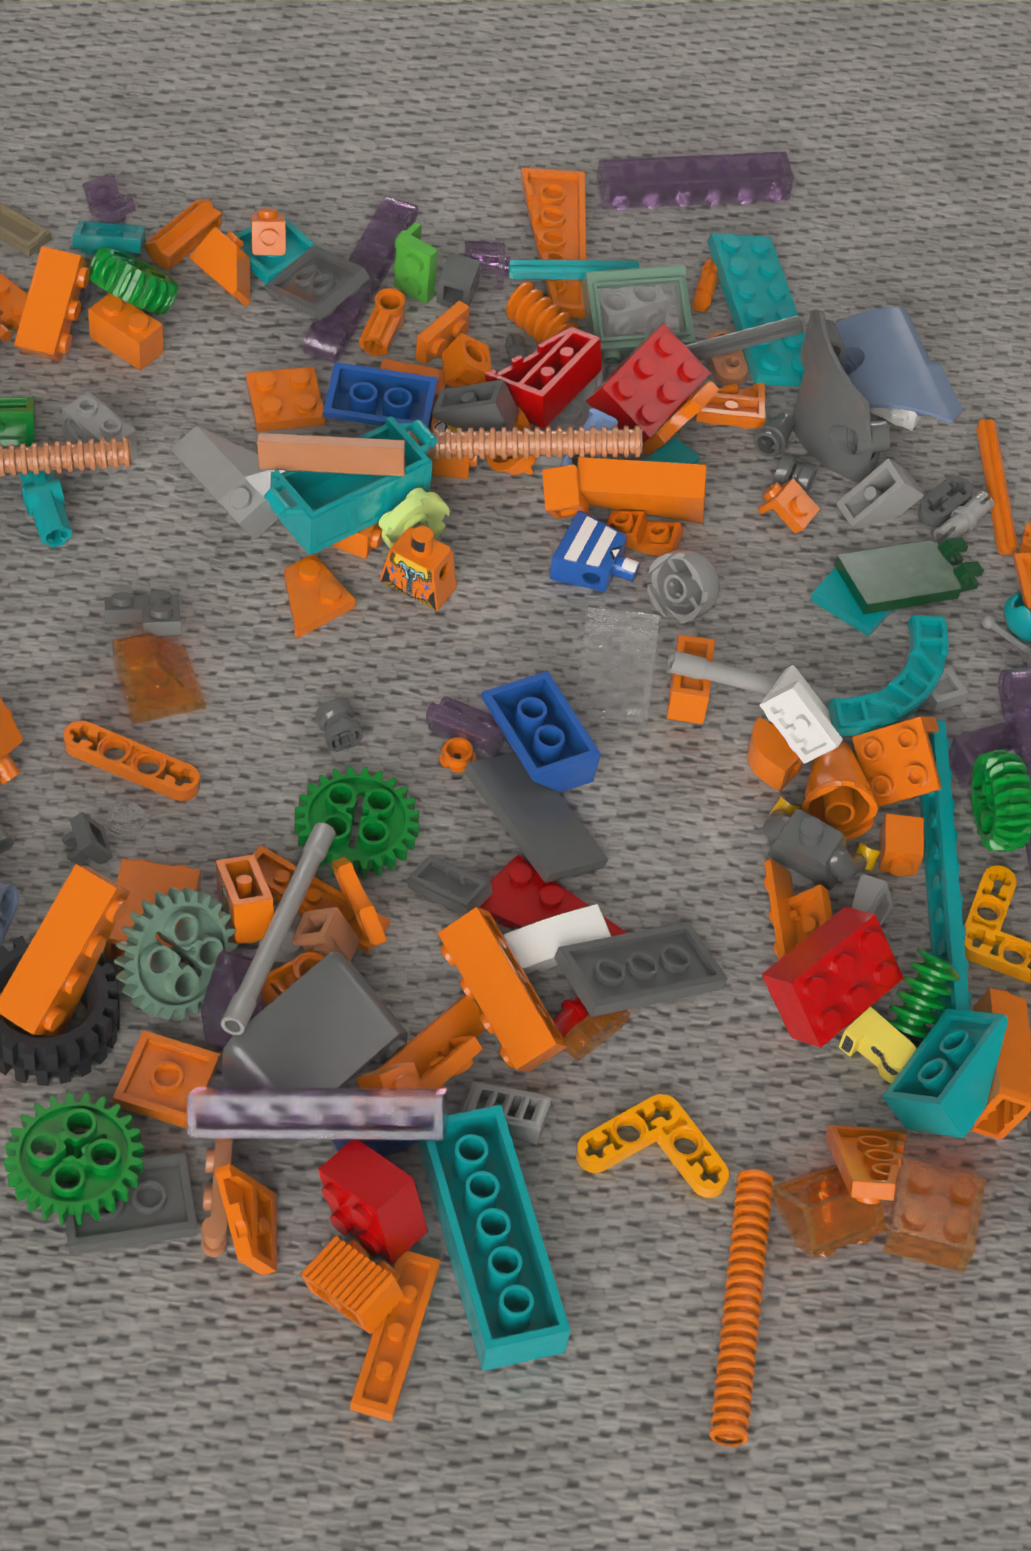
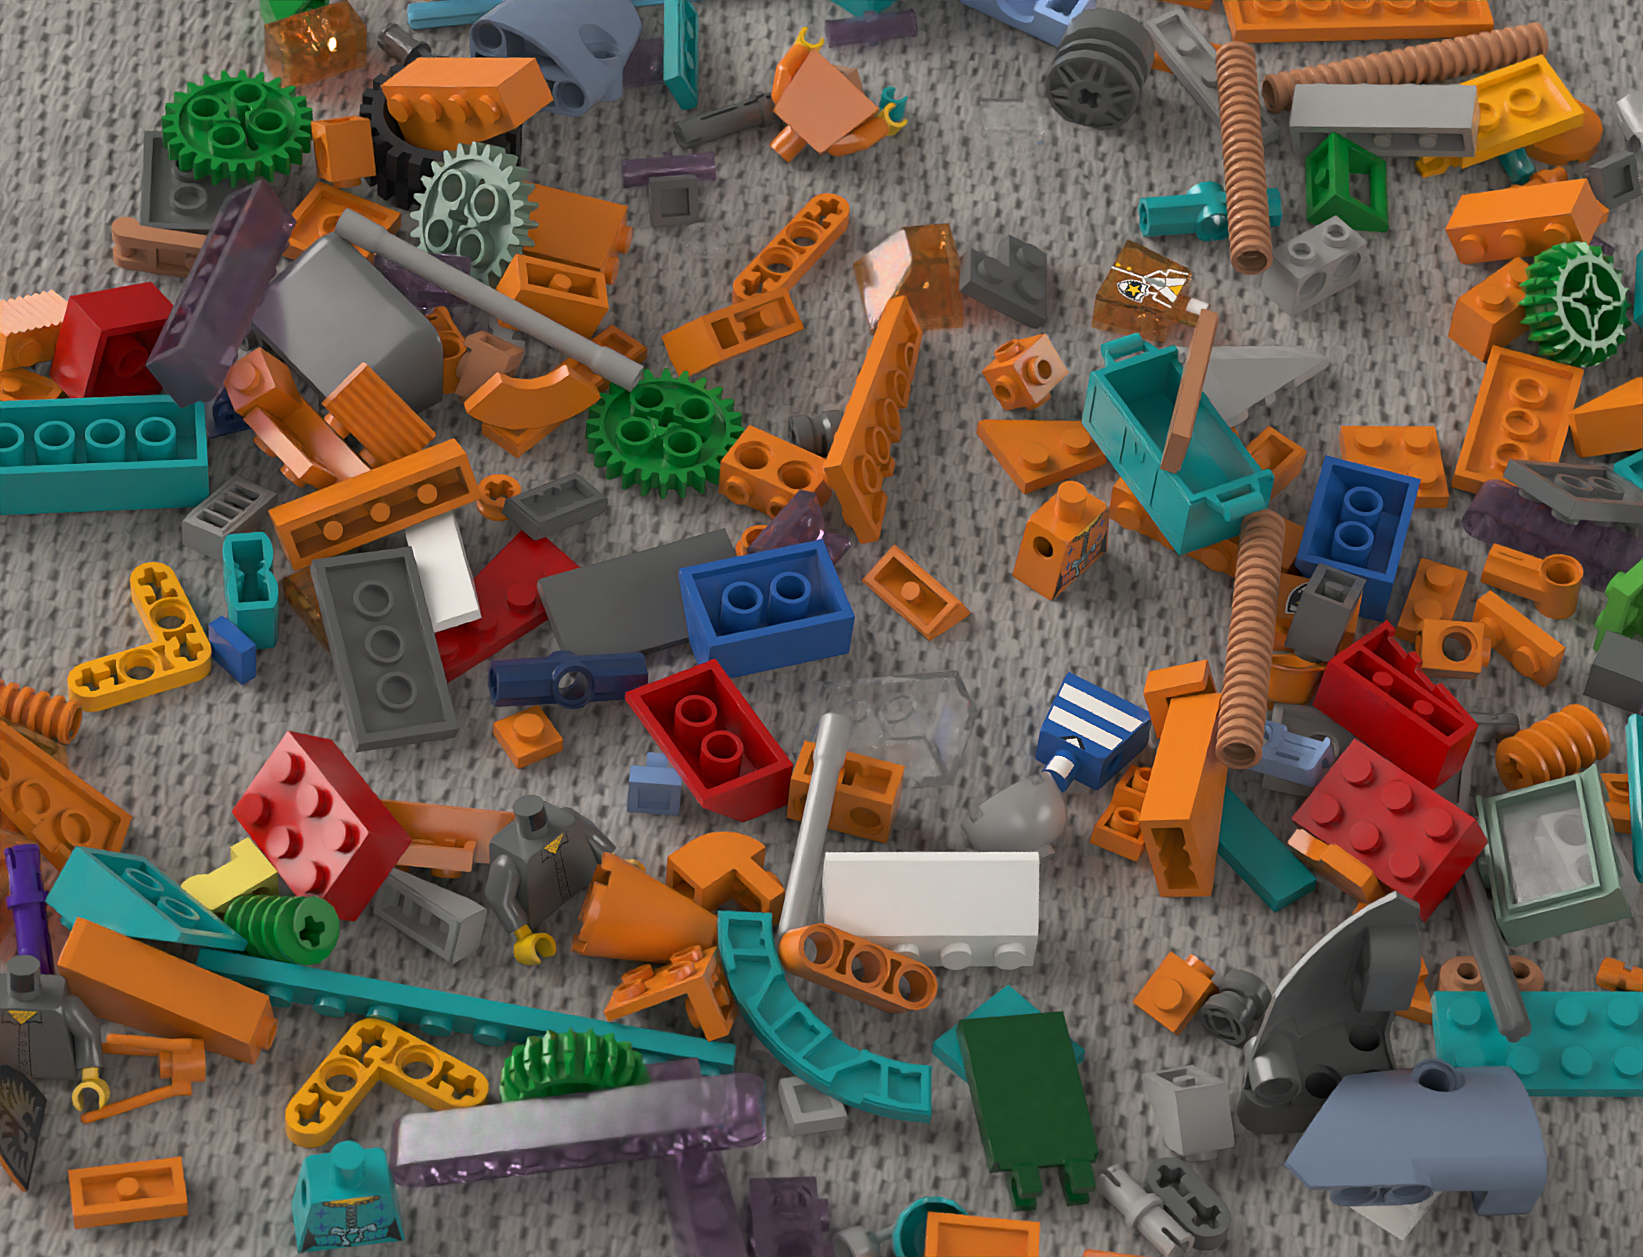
camera: 100 degrees right, 5 degrees down
(48, 849) = (637, 171): none -> clear purple pin
(95, 1066) = (343, 150): none -> orange brick
(145, 532) = (1145, 295): none -> clear orange torso
(237, 329) = (1516, 416): none -> orange plate
(248, 786) = (732, 332): none -> orange slope
(251, 598) = (1025, 372): none -> orange brick
(251, 1218) = (135, 258): orange wing -> none
(291, 684) = (872, 421): none -> orange wing
(393, 739) = (769, 472): none -> orange brick
(410, 1001) = (375, 418): none -> orange brick
(417, 510) = (1139, 536): yellowish green plate -> none
(436, 918) = (496, 486): none -> orange bush
(475, 662) = (914, 594): none -> orange slope
(606, 1068) = (251, 587): none -> teal brick
(628, 855) = (537, 679): none -> dark blue piece
(655, 1077) = (232, 649): none -> blue tile
(672, 753) = (715, 741): none -> red slope
(674, 883) = (528, 736): none -> orange plate
(707, 795) = (654, 787): none -> medium blue tile
(779, 619) = (937, 905): none -> white slope
(800, 716) = (740, 856): white bracket -> none
(849, 657) = (881, 968): none -> orange beam
(901, 844) = (539, 977): orange brick -> none
(962, 1154) = (29, 904): none -> dark purple pin

